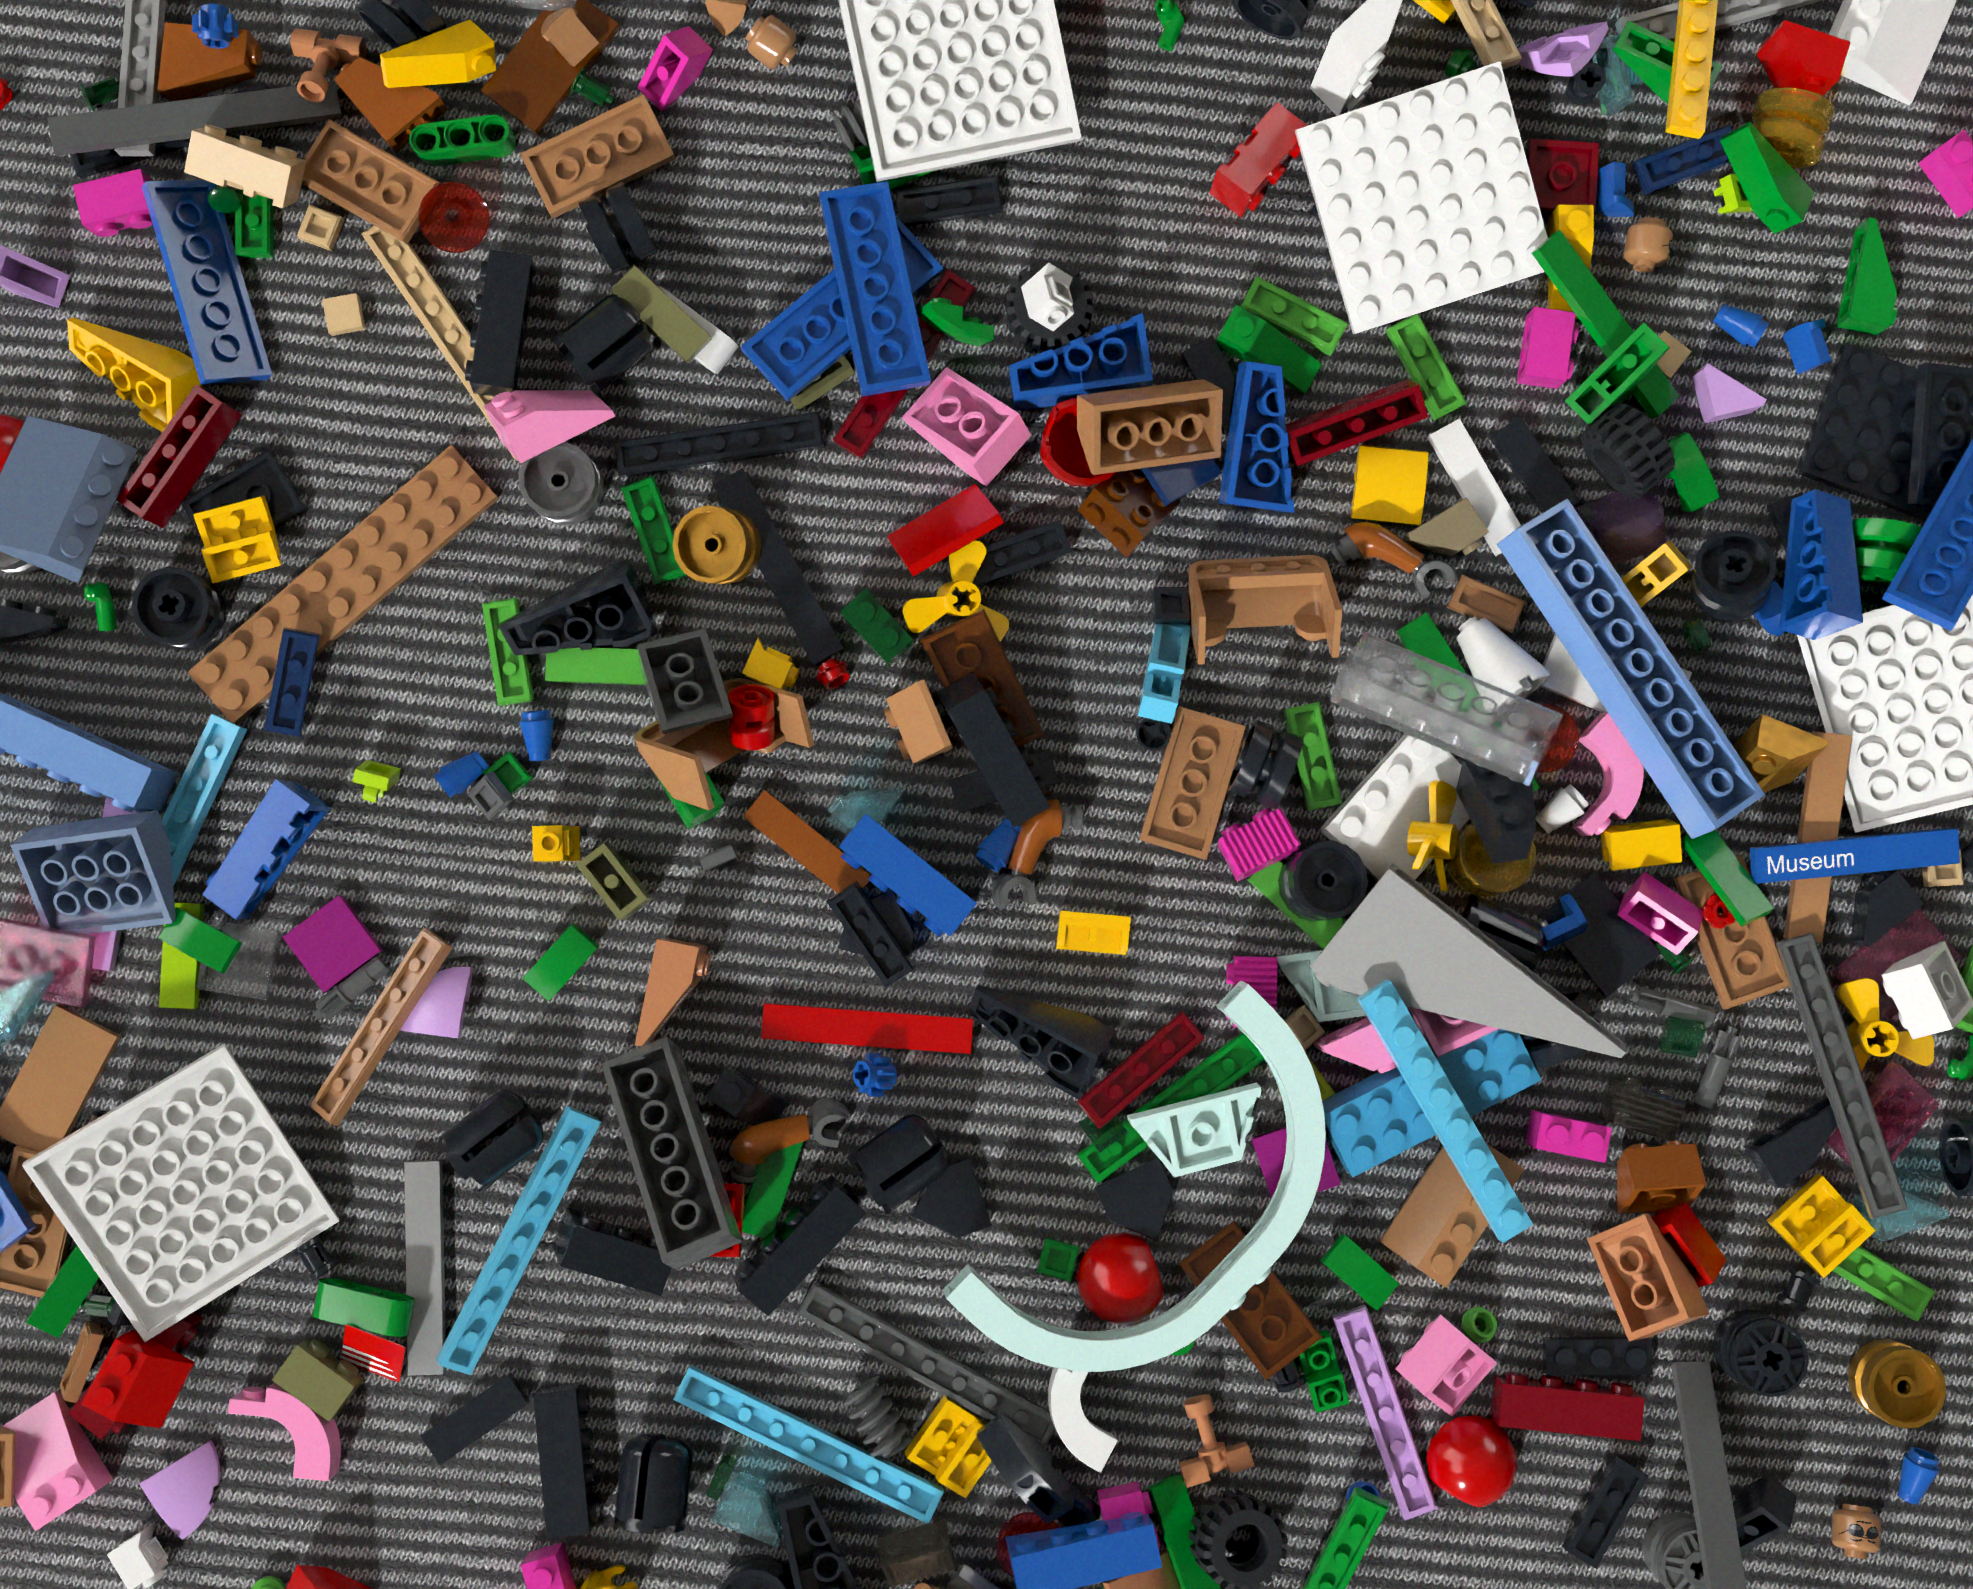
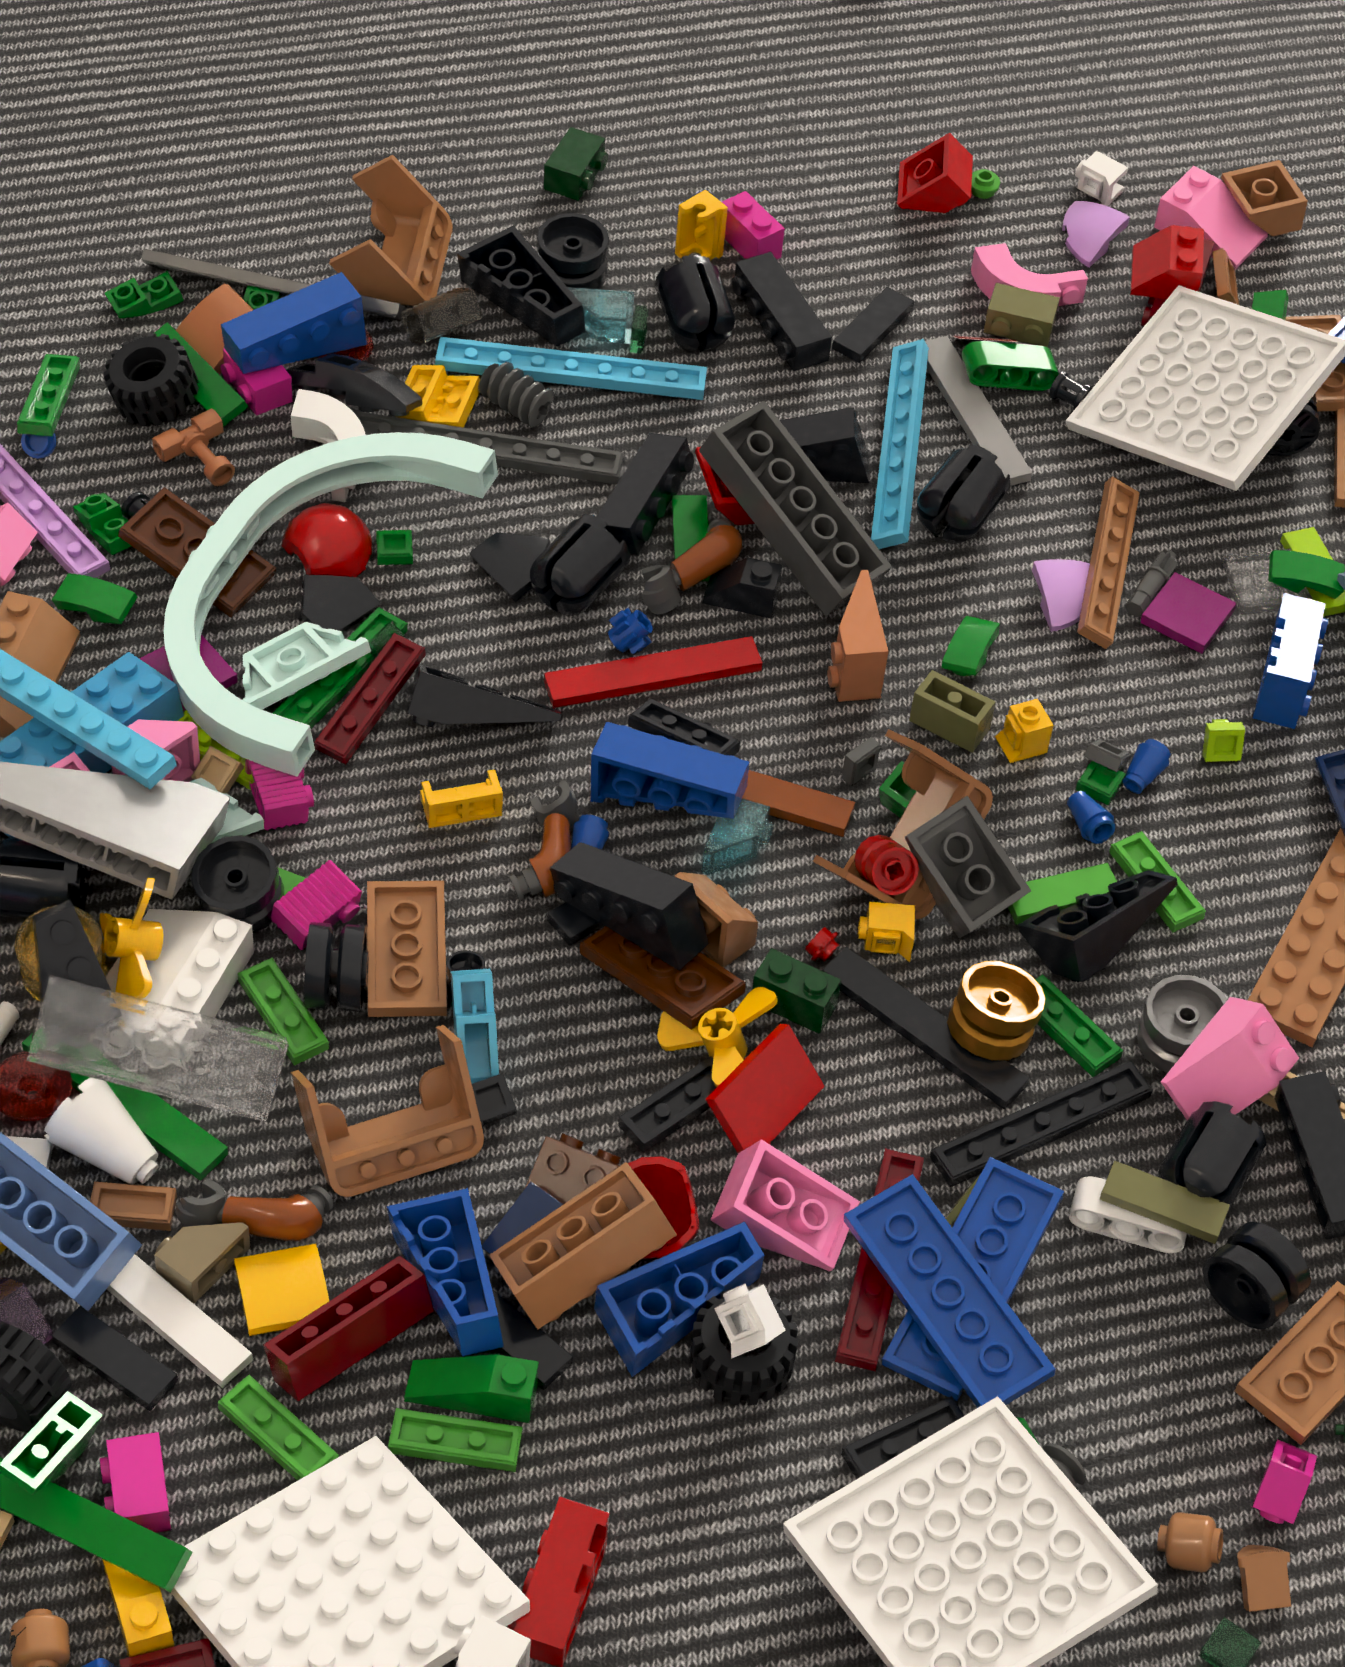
camera: 160 degrees right, 35 degrees down
(949, 321) = (857, 1293): green slope -> none

